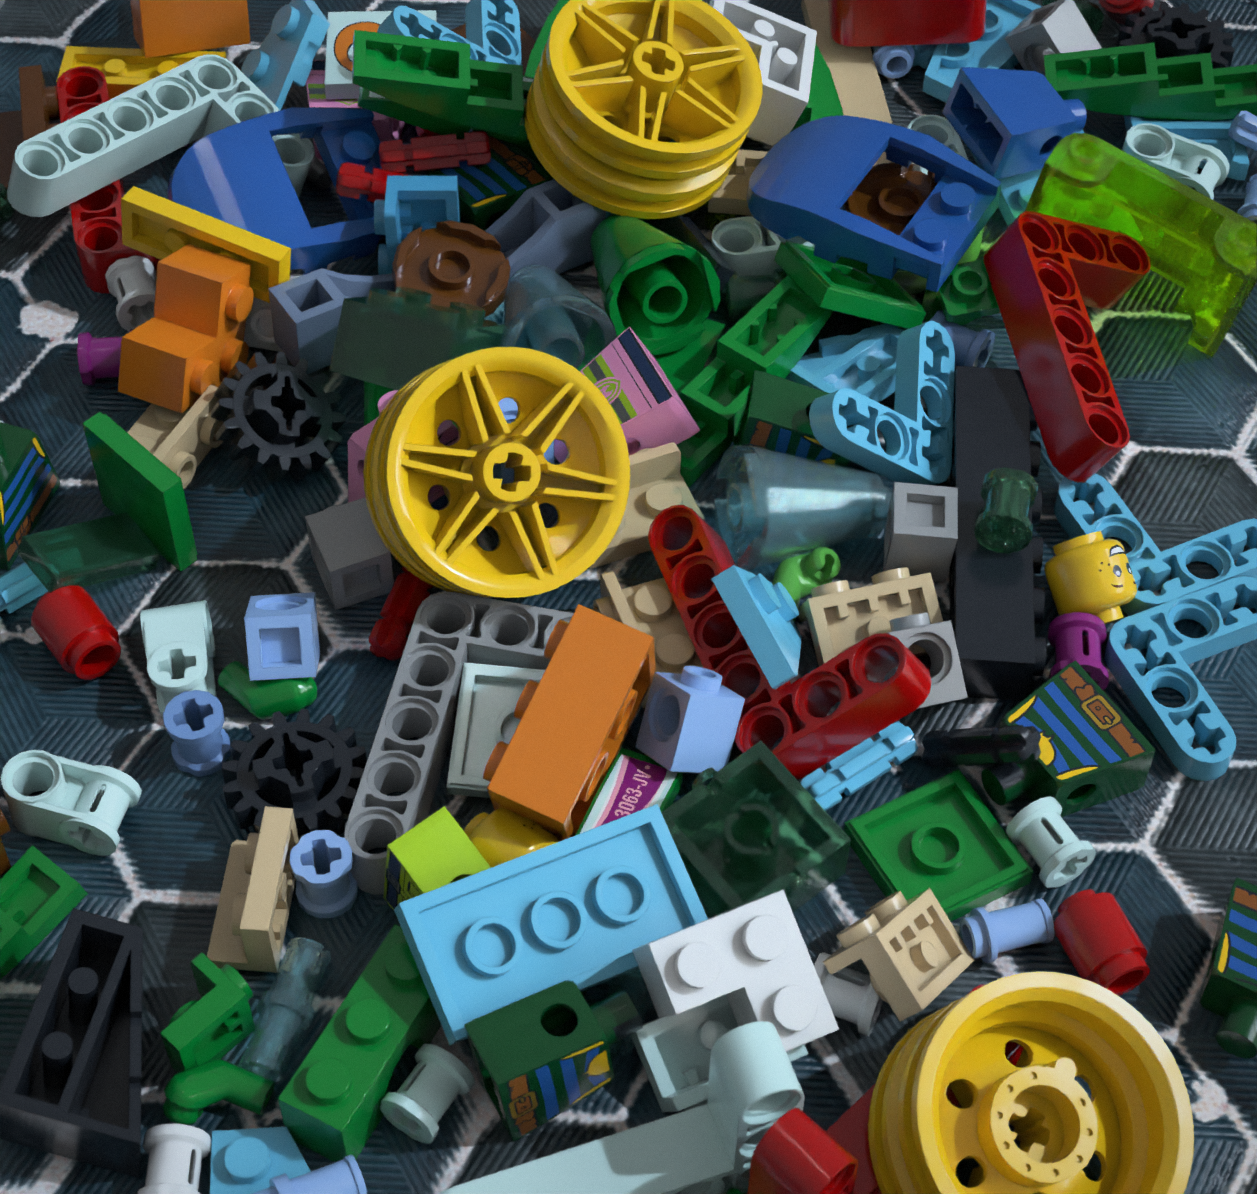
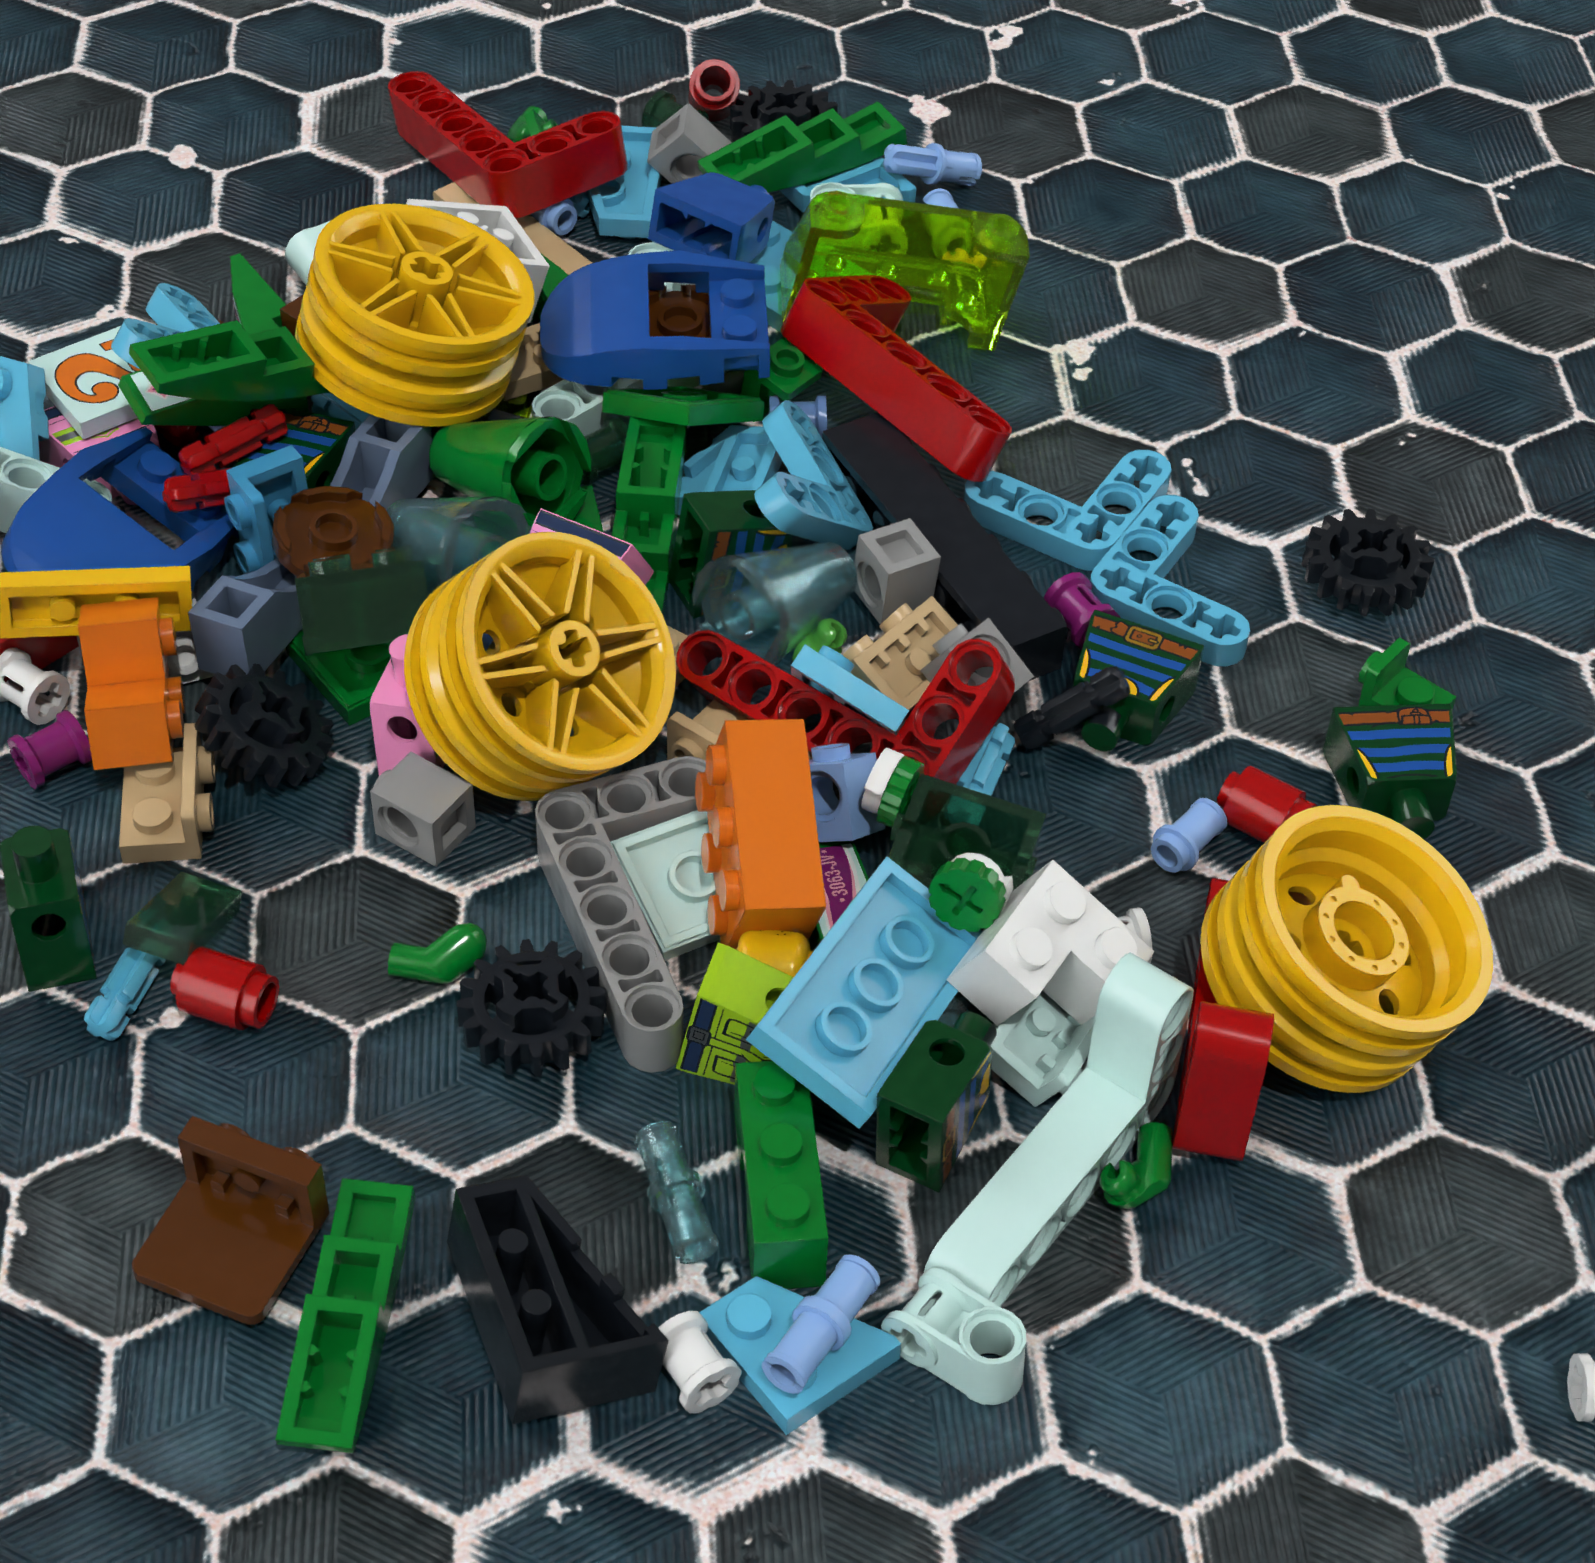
camera: 35 degrees left, 5 degrees down
(80, 800) = (346, 1124): light aqua piece -> none
(143, 487) = (197, 833): green tile -> none
(179, 649) = (341, 966): light aqua piece -> none
(195, 725) = (411, 1006): medium blue bush -> none
(210, 1083) = (666, 1277): green arm -> none
(214, 1023) = (624, 1224): green bracket -> none
(256, 896) = (582, 1112): tan bracket -> none
(282, 636) = (428, 898): light blue brick -> none
(323, 874) = (622, 1064): light blue bush -> none
(398, 615) = (502, 837): red axle -> none
(427, 1093) = (851, 1186): light aqua bush -> none
(705, 878) = (969, 892): none -> green piece
(726, 735) = (891, 785): none -> piece
(907, 950) = (1130, 867): tan bracket -> none
(941, 842) = (1094, 808): green tile -> none
(1005, 519) = (963, 516): clear green bush -> none
(1050, 842) = (1171, 756): light aqua bush -> none
(1090, 577) = (1051, 546): yellow head -> none

